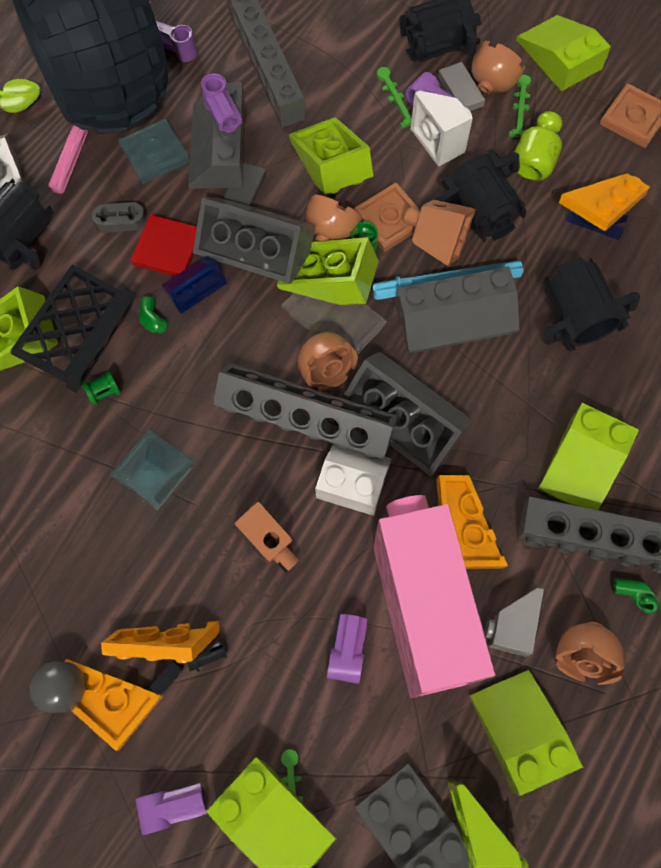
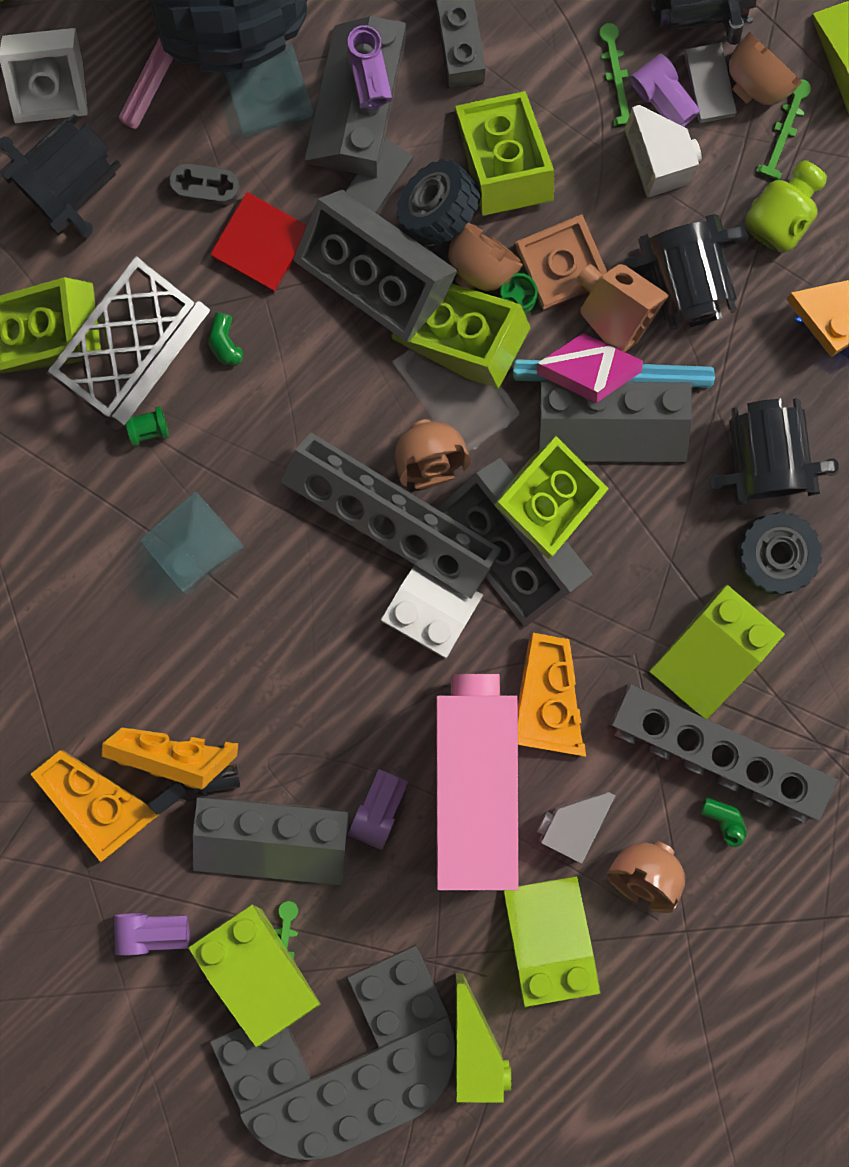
camera: 10 degrees right, 15 degrees up
(57, 687) = (46, 780): dark grey hair -> none
(194, 284) = (286, 306): clear blue slope -> none
(258, 525) = (301, 650): nougat torso -> none
(260, 697) = (270, 840): none -> dark grey slope
(291, 187) = (438, 202): none -> black wheel
(428, 362) = (551, 496): none -> lime slope
(430, 272) = (589, 367): none -> dark pink tile
(622, 366) = (801, 551): none -> black wheel

